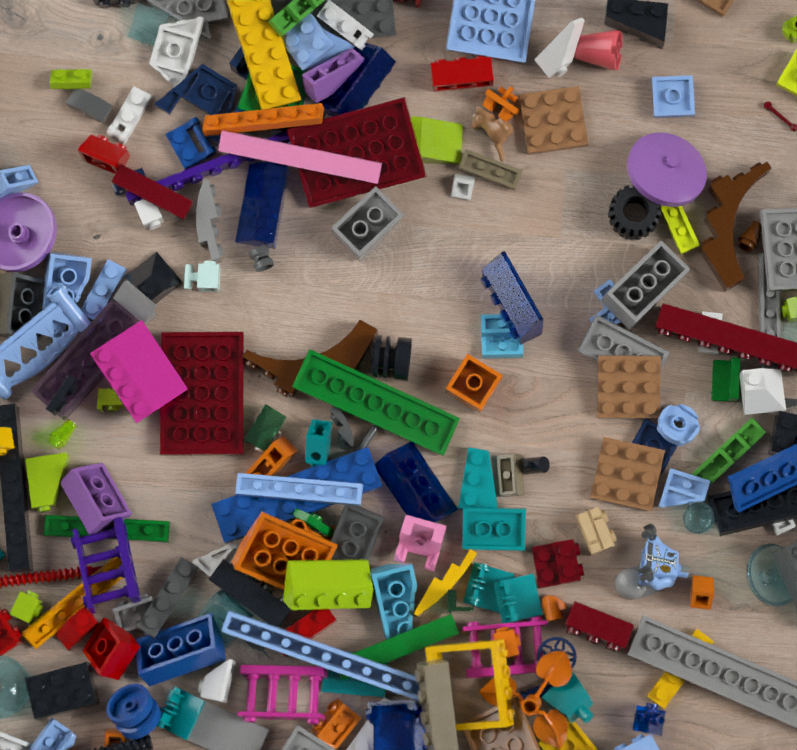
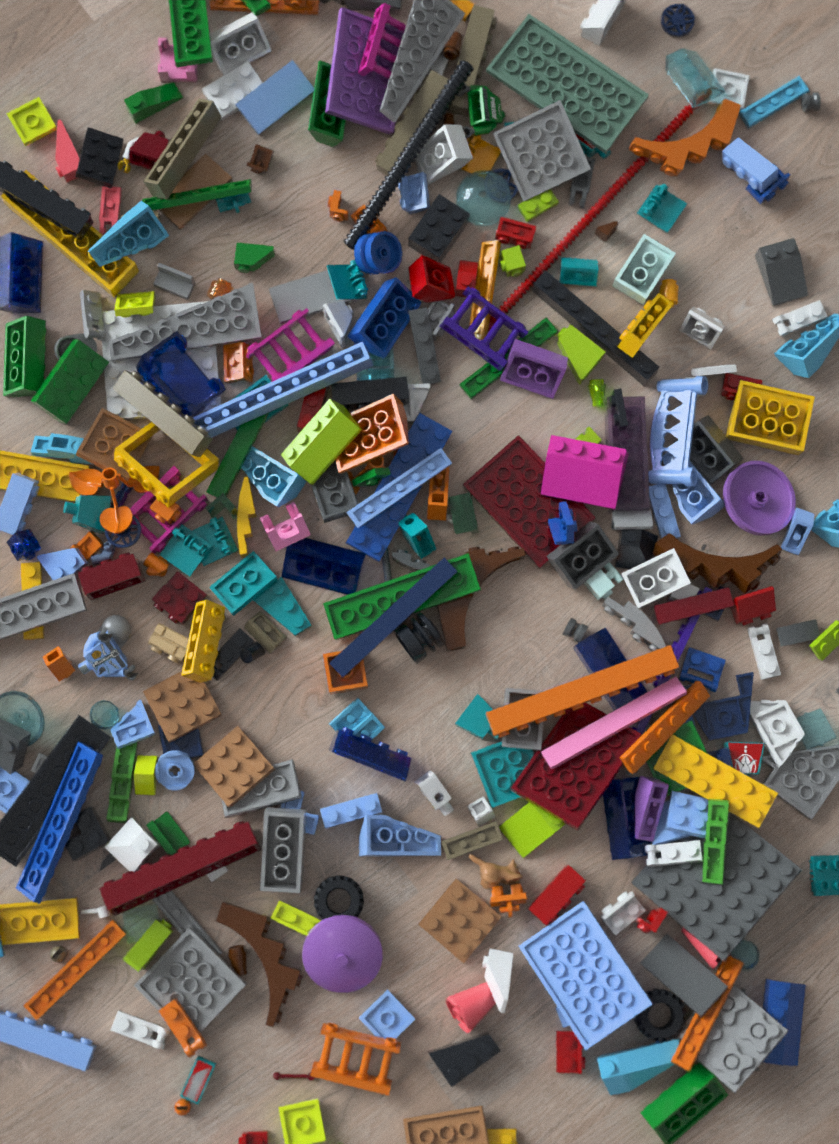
camera: 130 degrees right, 0 degrees up
(123, 228) = (717, 570): none -> reddish brown arch
(161, 239) = (656, 578): none -> white slope
(196, 343) = (564, 526): none -> blue bracket
(201, 309) = (584, 557): none -> dark grey brick
(221, 48) = (746, 756): none -> torso
(302, 199) = (582, 690): none -> orange brick
(398, 387) = (393, 617): none -> dark blue tile
(401, 255) = (474, 719): none -> teal torso
(420, 201) = (499, 770): none -> teal plate
(423, 19) = (622, 913): none -> white bracket
(487, 229) = (430, 786): none -> white torso
(552, 224) = (389, 837): none -> light blue wedge
(555, 482) = (231, 652): none -> black plate
(565, 272) = (350, 810): none -> light blue brick
(568, 505) = (203, 641): none -> yellow brick
(587, 654) = (107, 553): none -> sand blue arm
(603, 675) = (89, 545): none -> orange slope
(630, 676) = (62, 562): none -> light blue wing
(704, 443) = (145, 775): none -> neon yellow slope
(735, 73) = (360, 1078): none -> orange fence

